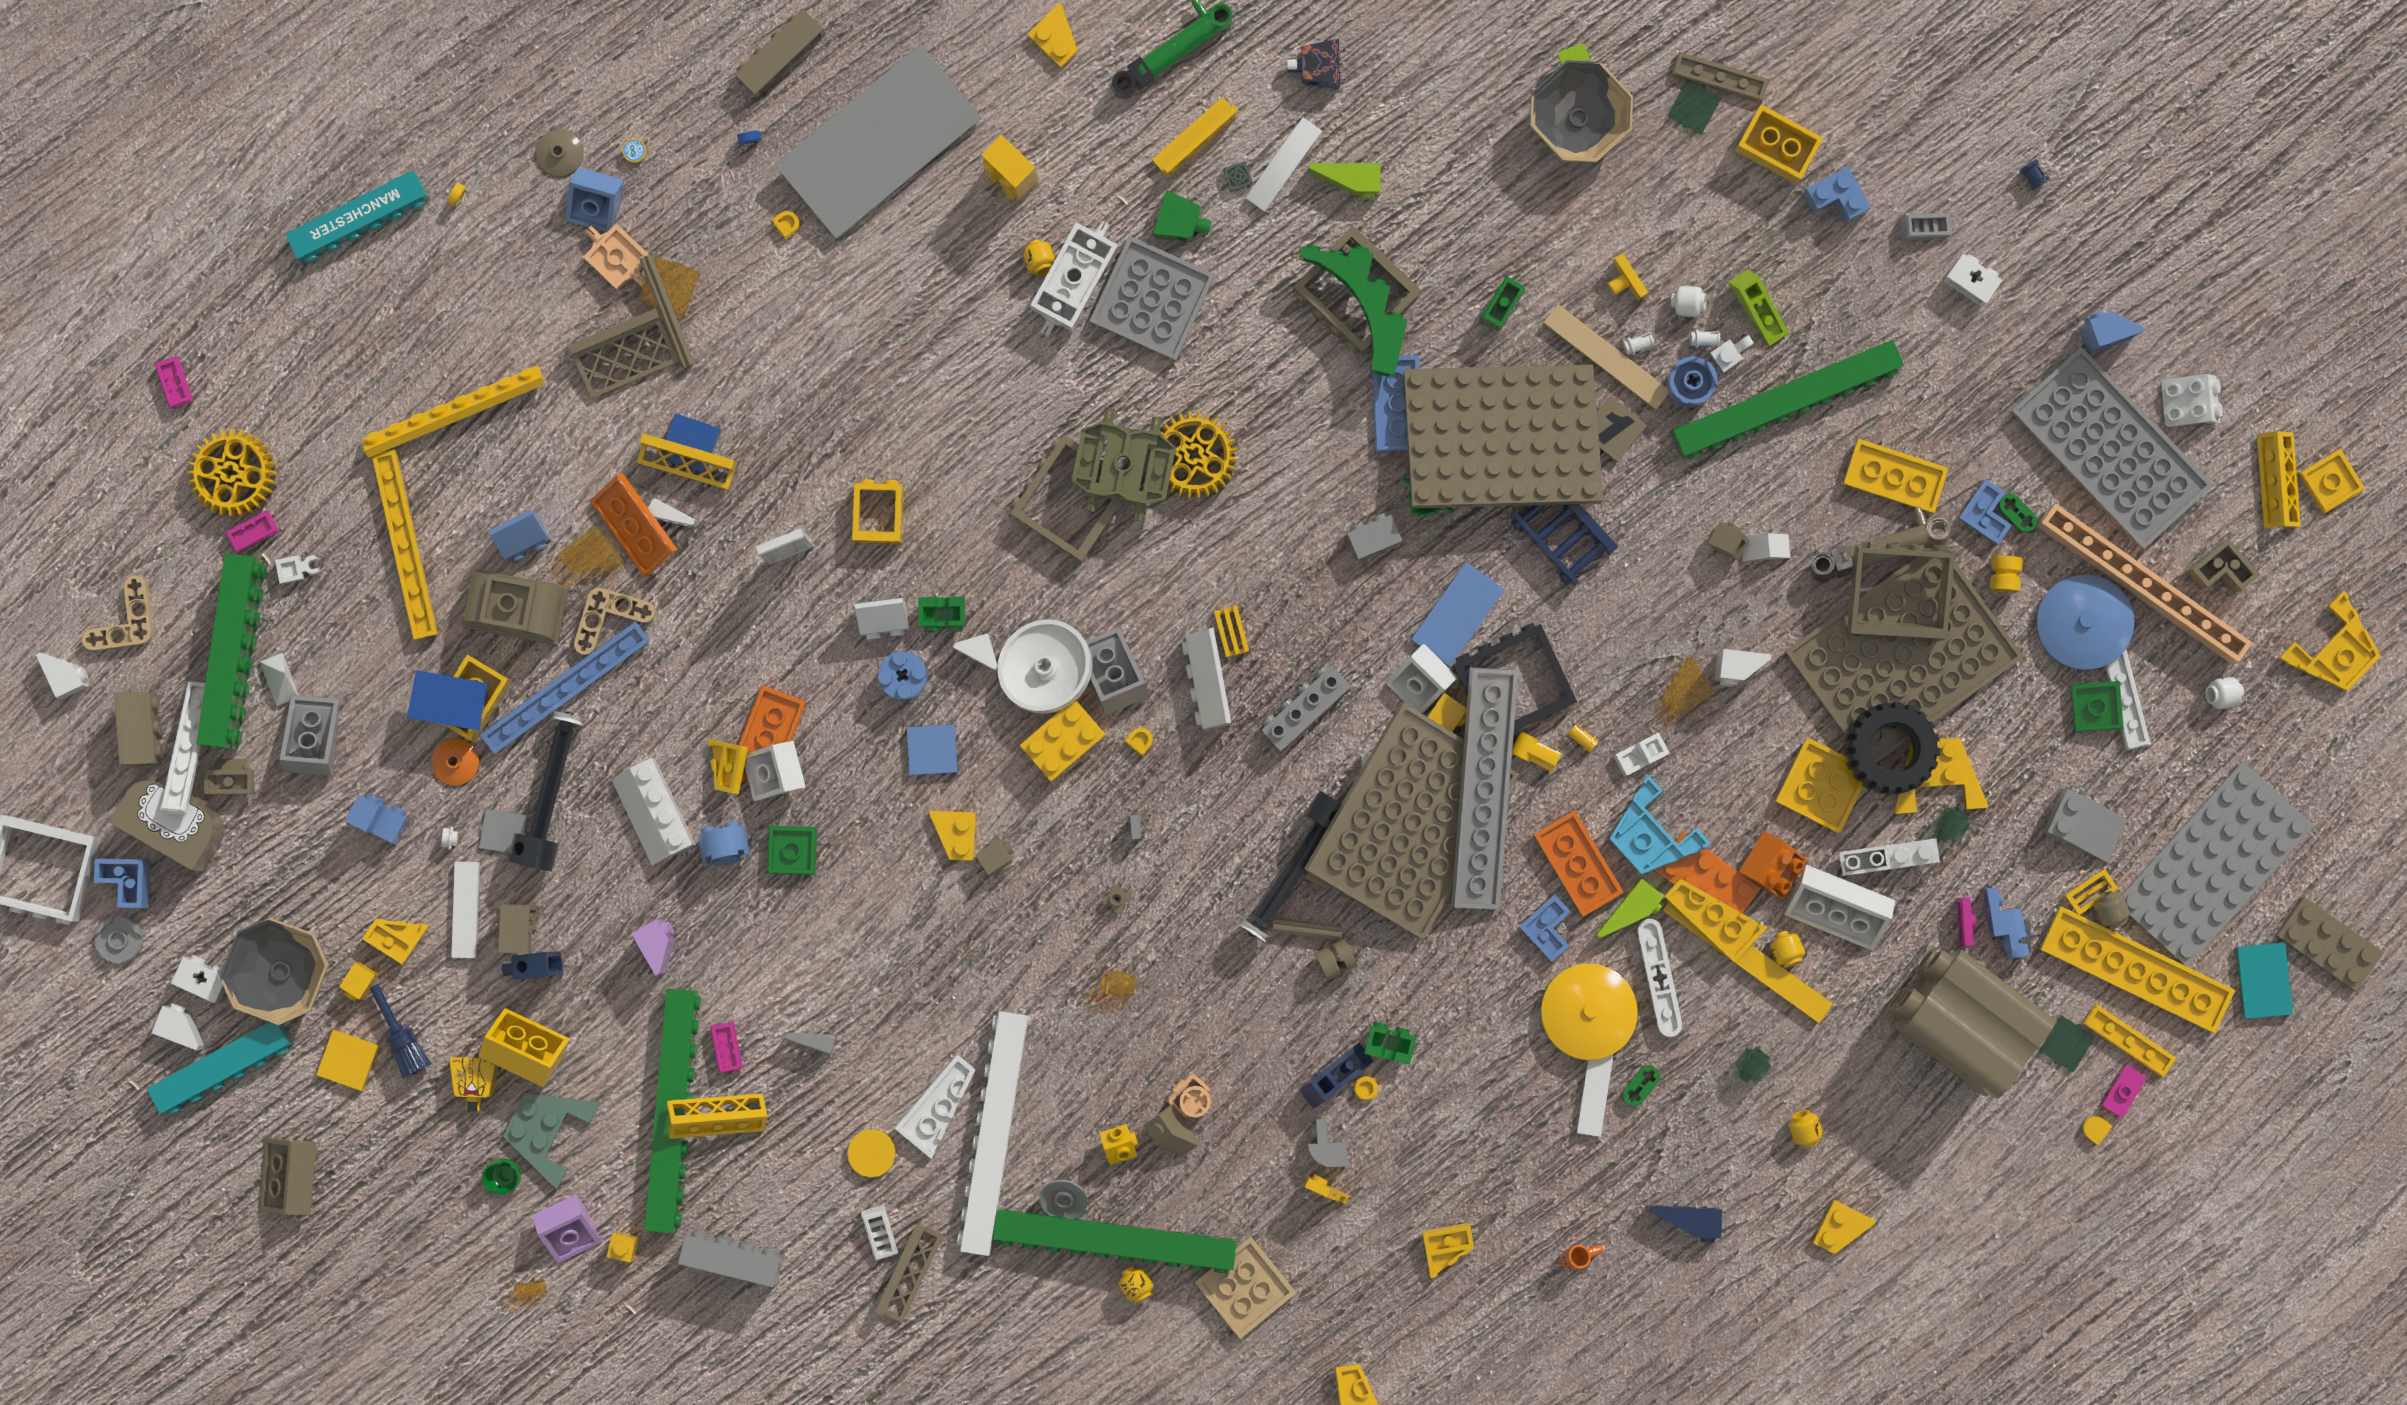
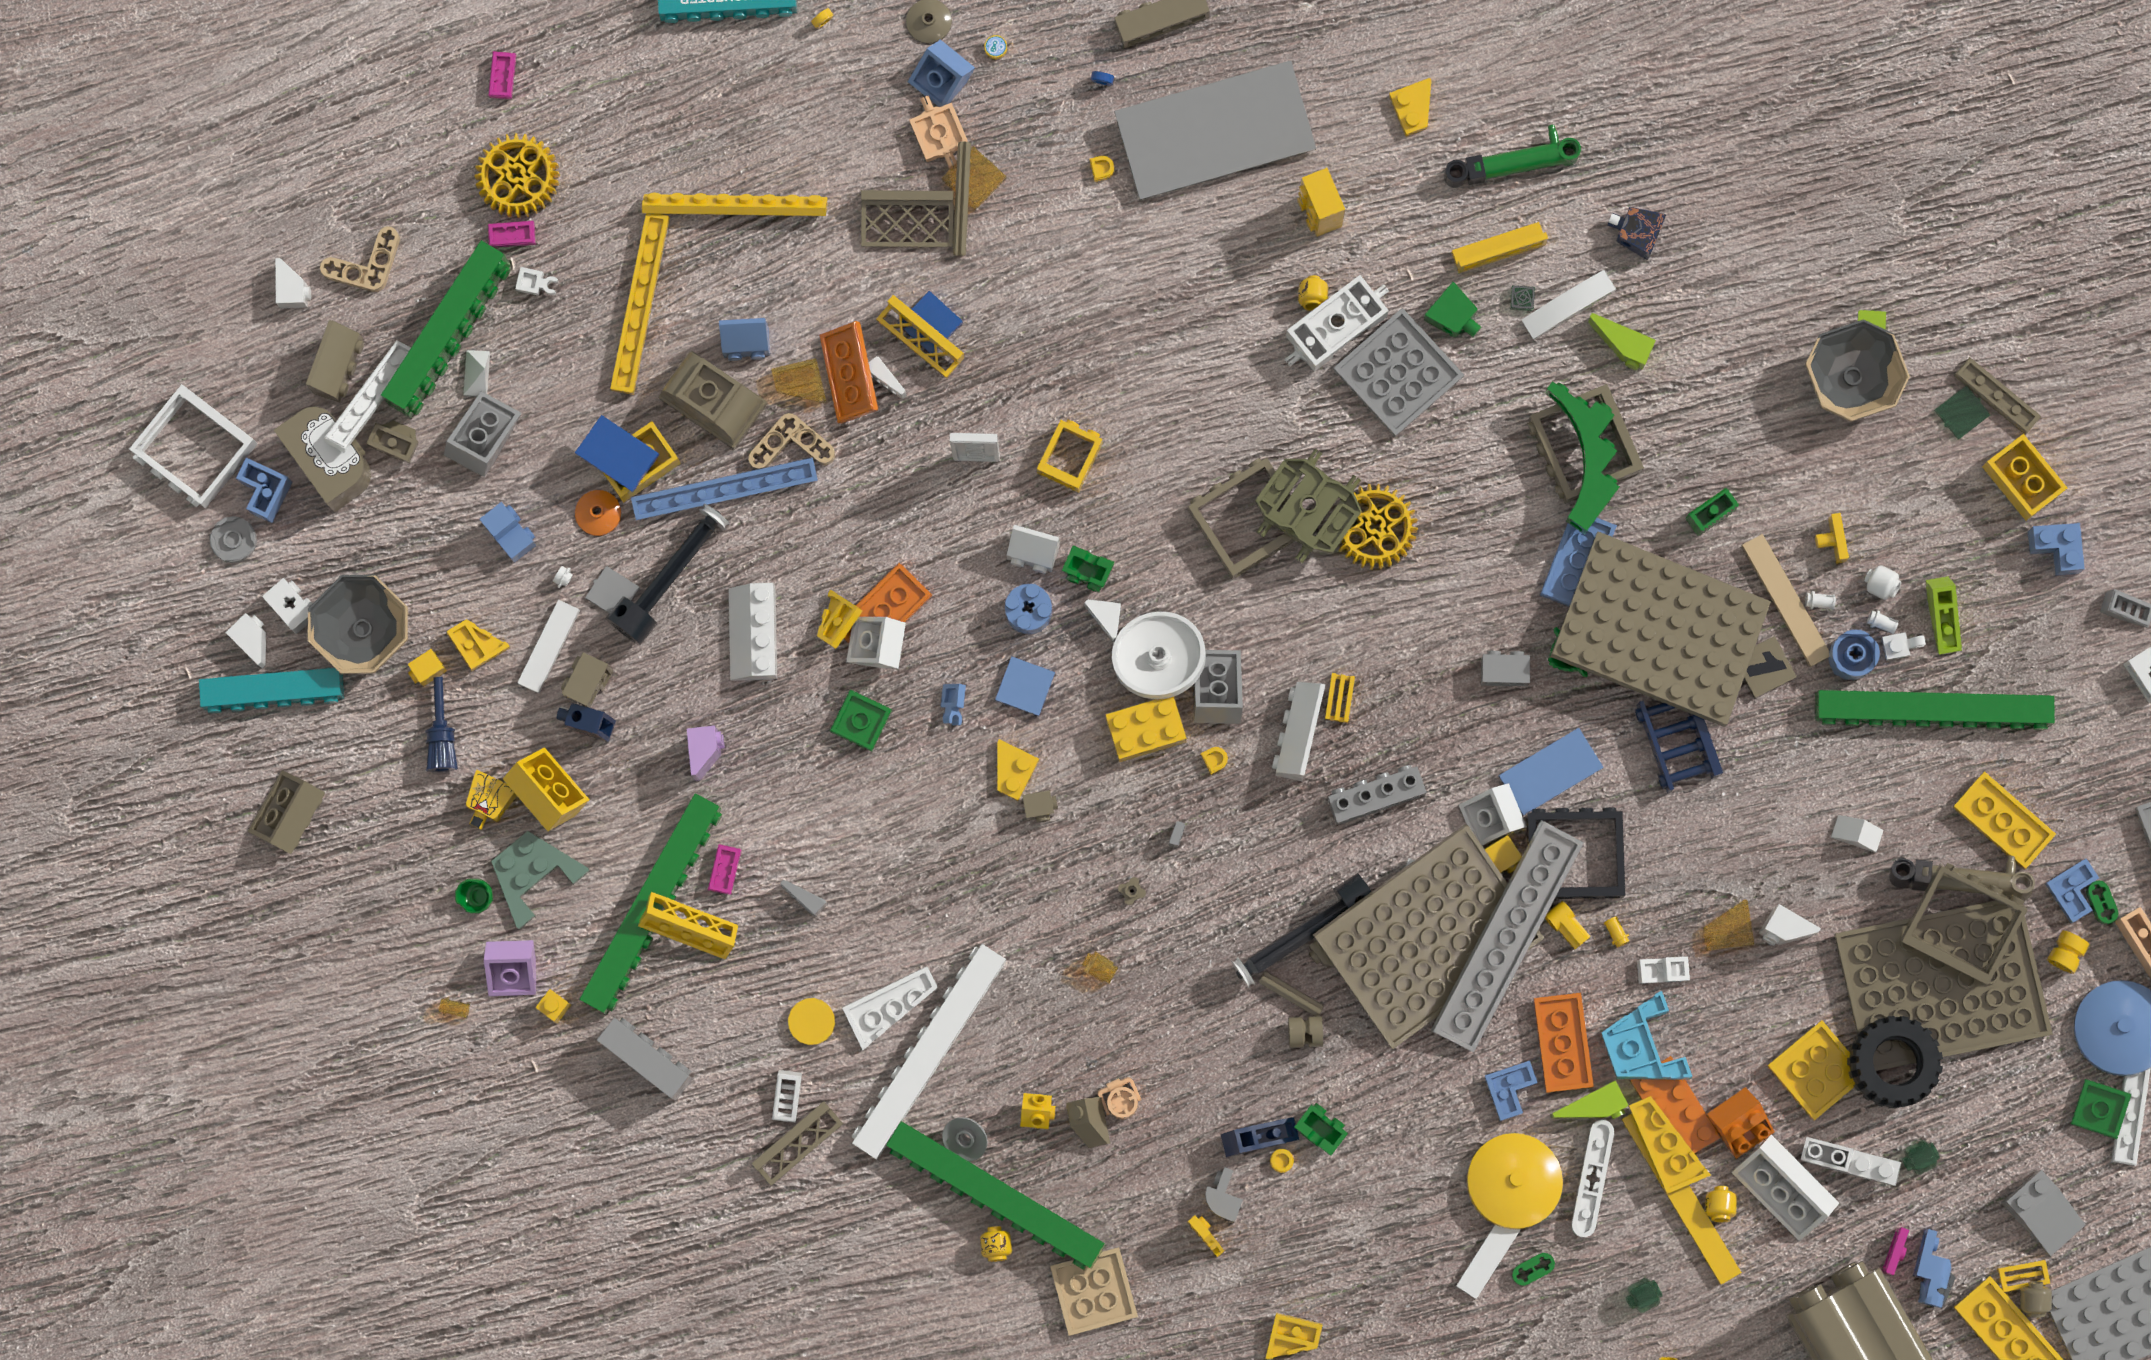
camera: 30 degrees right, 5 degrees down
(347, 1060) = (385, 733): yellow tile -> none
(723, 844) = (802, 688): medium blue brick -> none
(869, 794) = (953, 699): none -> medium blue plate
(1728, 540) = (1826, 811): dark tan brick -> none
(1952, 769) = (1940, 1106): yellow wing -> none

